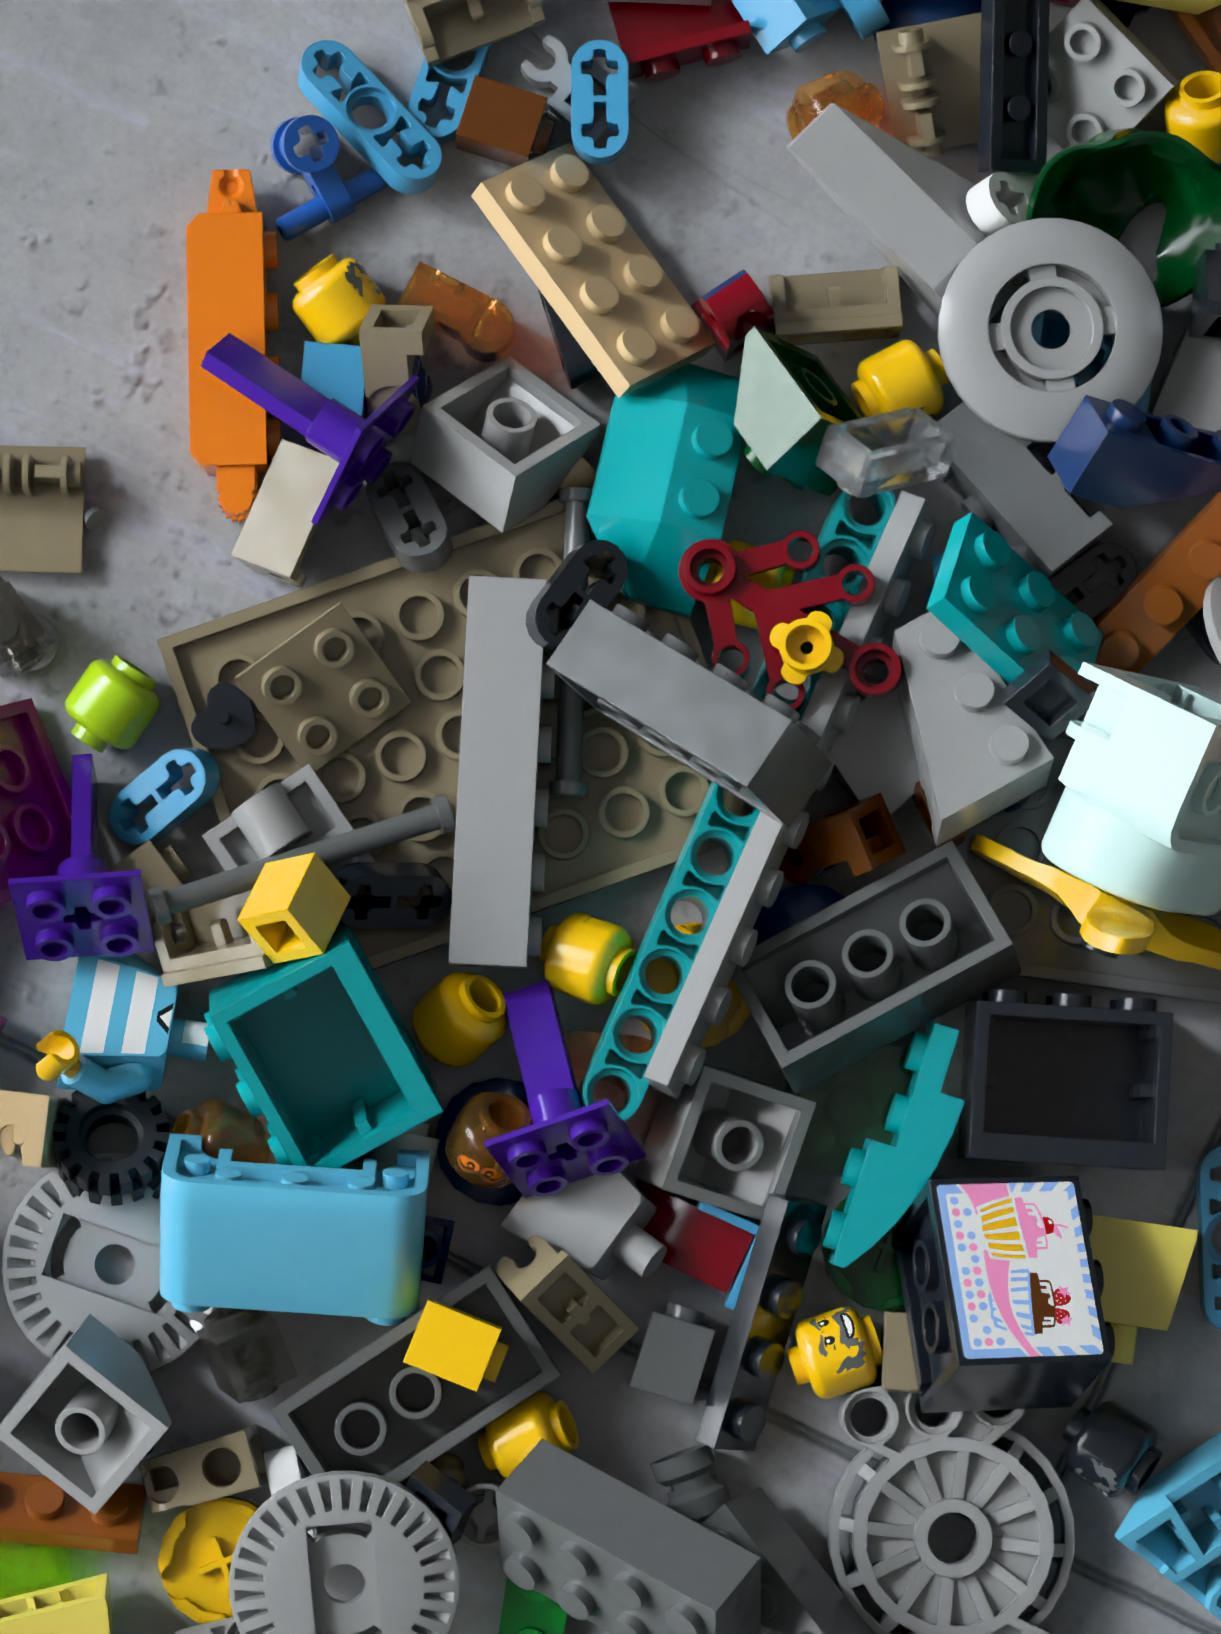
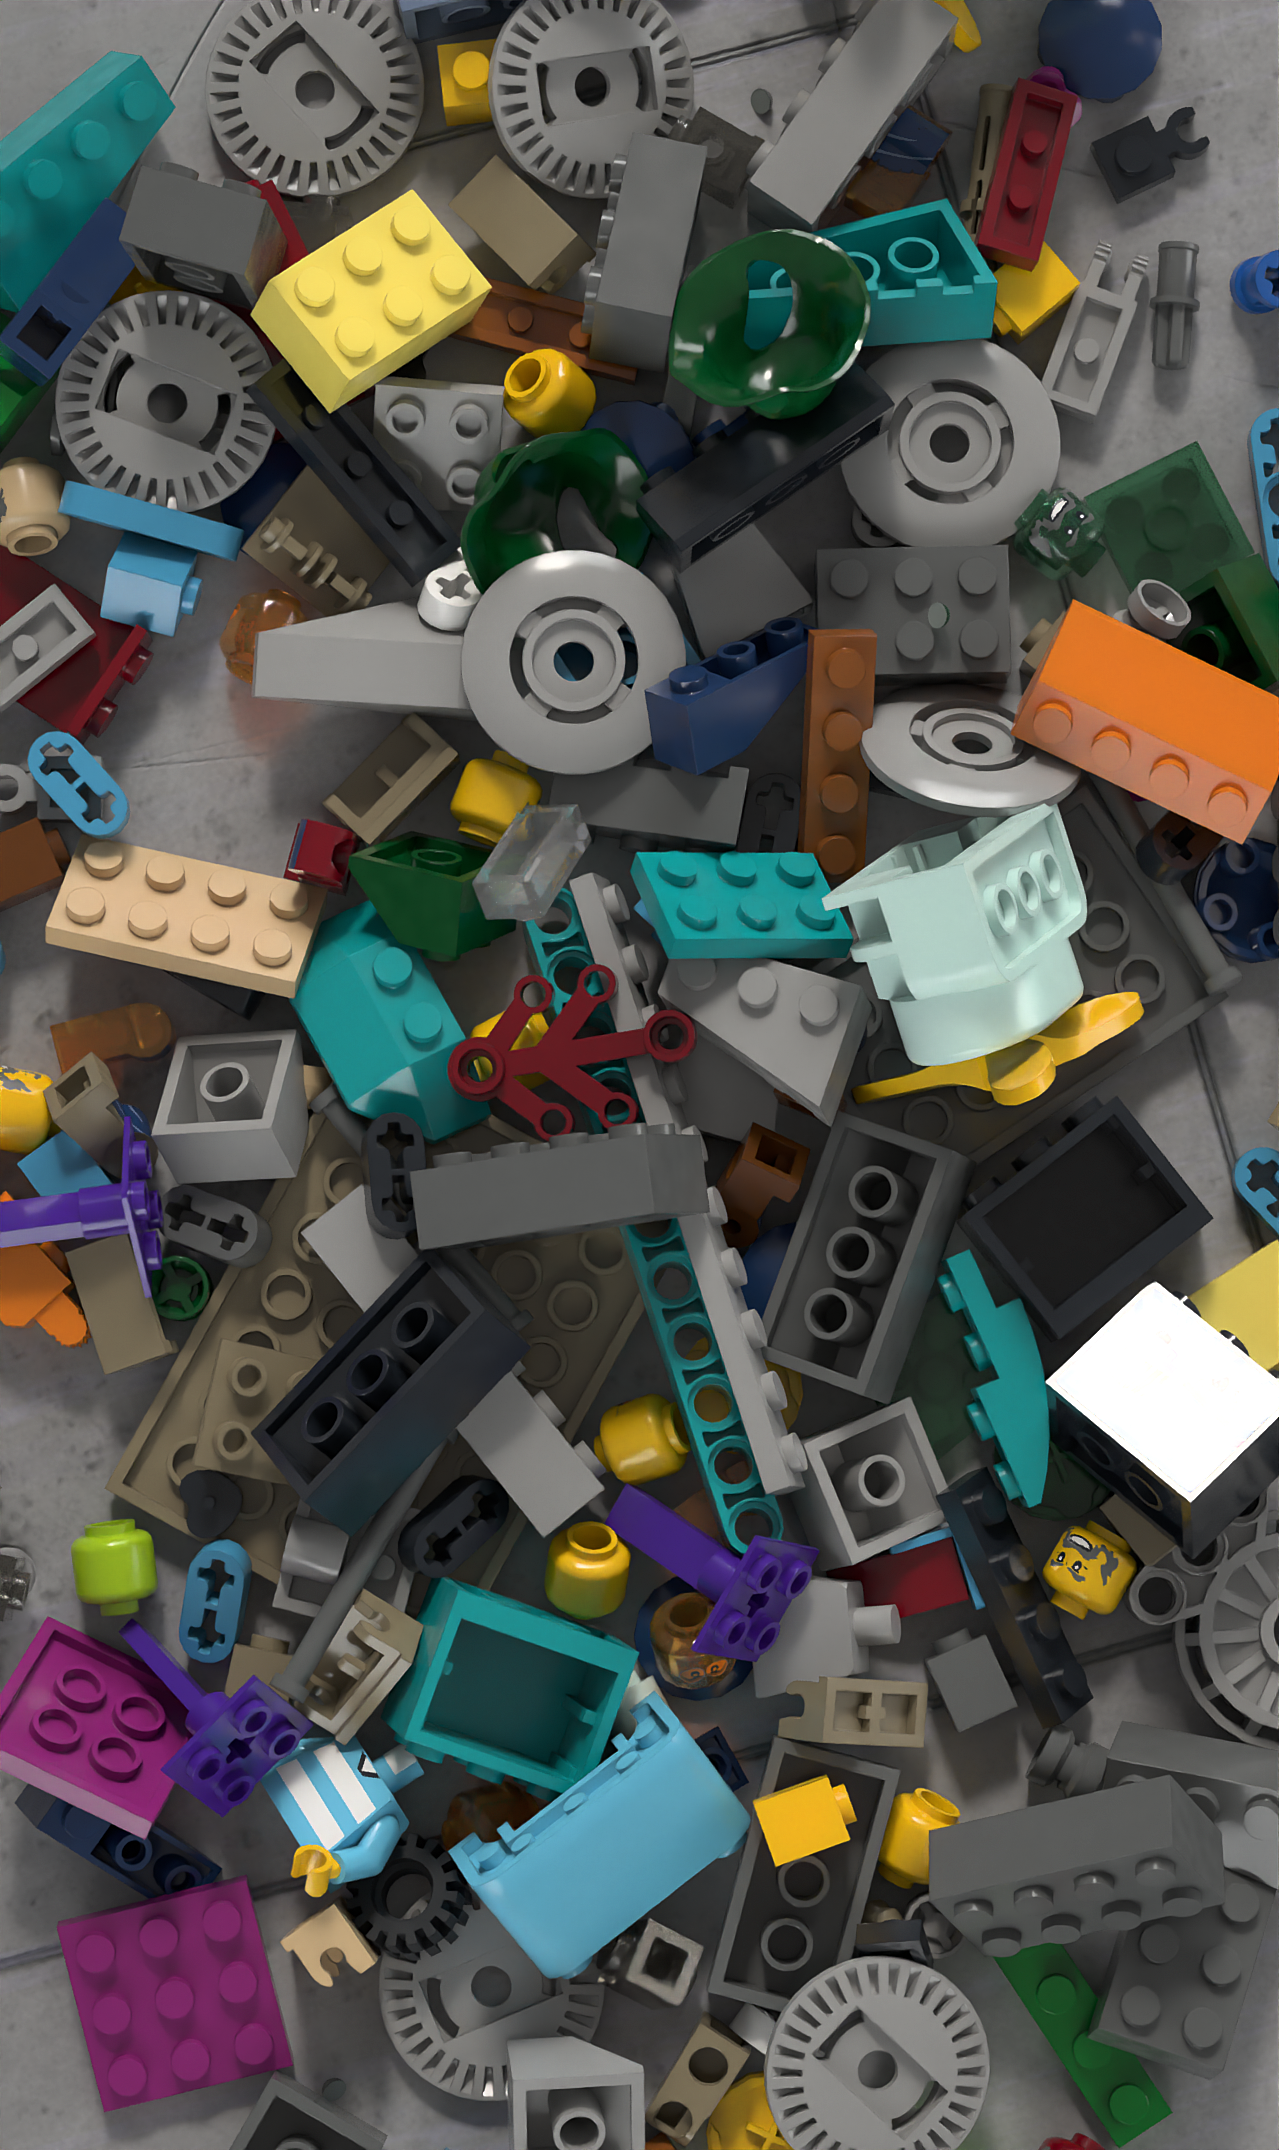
camera: 35 degrees left, 0 degrees up
(294, 908) = (393, 1600): yellow brick -> none
(343, 533) = (175, 1284): none -> dark green wheel
(429, 751) = (389, 1391): none -> black slope
(814, 630) = (585, 1068): yellow plate -> none
(1049, 695) = (816, 942): black plate -> none

